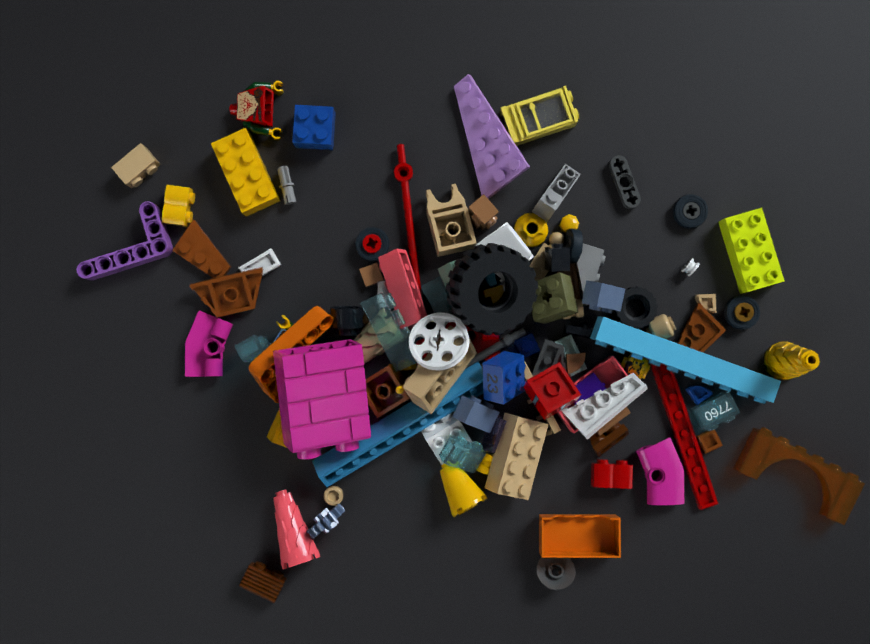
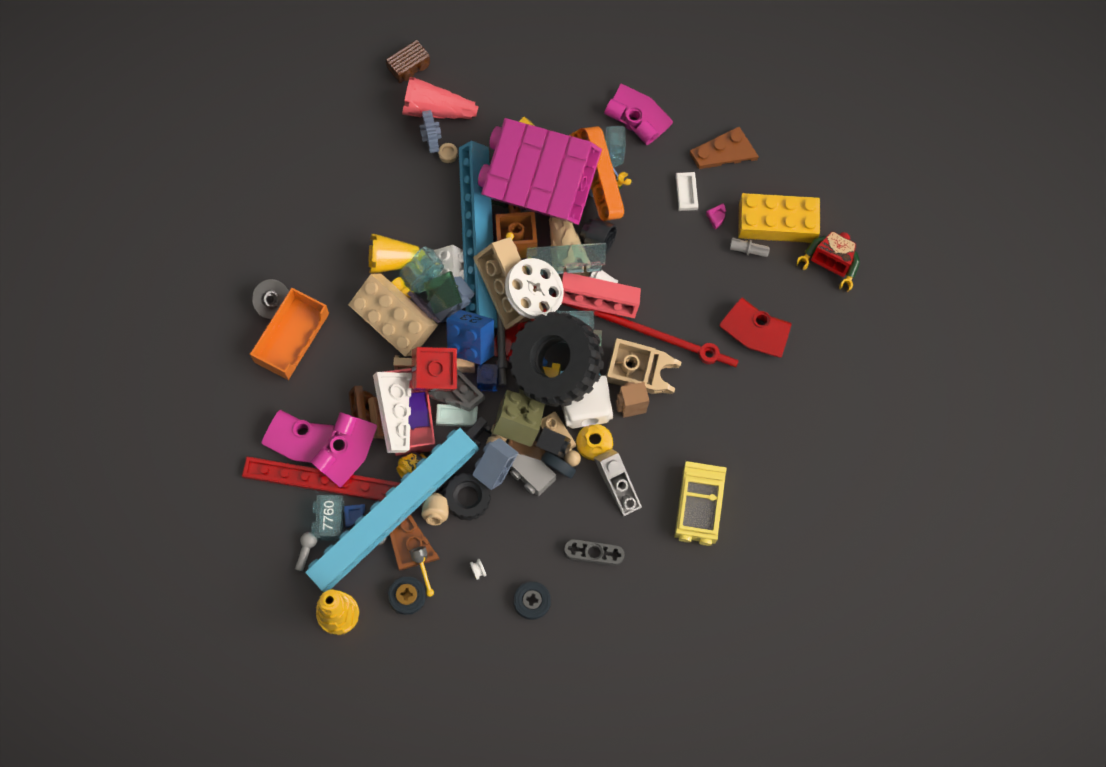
camera: 115 degrees right, 15 degrees down
(133, 252) = (751, 94): medium lavender beam -> none
(136, 166) = (831, 132): tan brick -> none
(177, 205) = (777, 149): yellow brick -> none
(230, 292) = (675, 154): dark orange wing -> none
(269, 228) = (716, 215): none -> dark pink tile
(314, 127) = (791, 295): blue brick -> none
(365, 129) = (765, 338): none -> red panel
(371, 274) = (628, 277): medium nougat tile -> none
(374, 249) = (653, 300): black wheel -> none
(477, 422) = (442, 292): none -> clear green piece
(491, 147) = (692, 442): lavender wing -> none
(569, 222) = (581, 479): yellow tile -> none
(574, 361) = (448, 412): medium nougat tile -> none
(611, 474) = (326, 392): red brick -> none
(643, 425) = (356, 438): none -> dark pink panel
(708, 301) = (436, 569): tan tile -> none
(708, 441) = (304, 500): dark orange tile -> none
(709, 318) = (419, 555): none -> hinge
(743, 417) = (307, 541): none -> light grey bar
(751, 250) = (461, 634): neon yellow piece -> none
(838, 488) = (191, 596): clear orange arch -> none

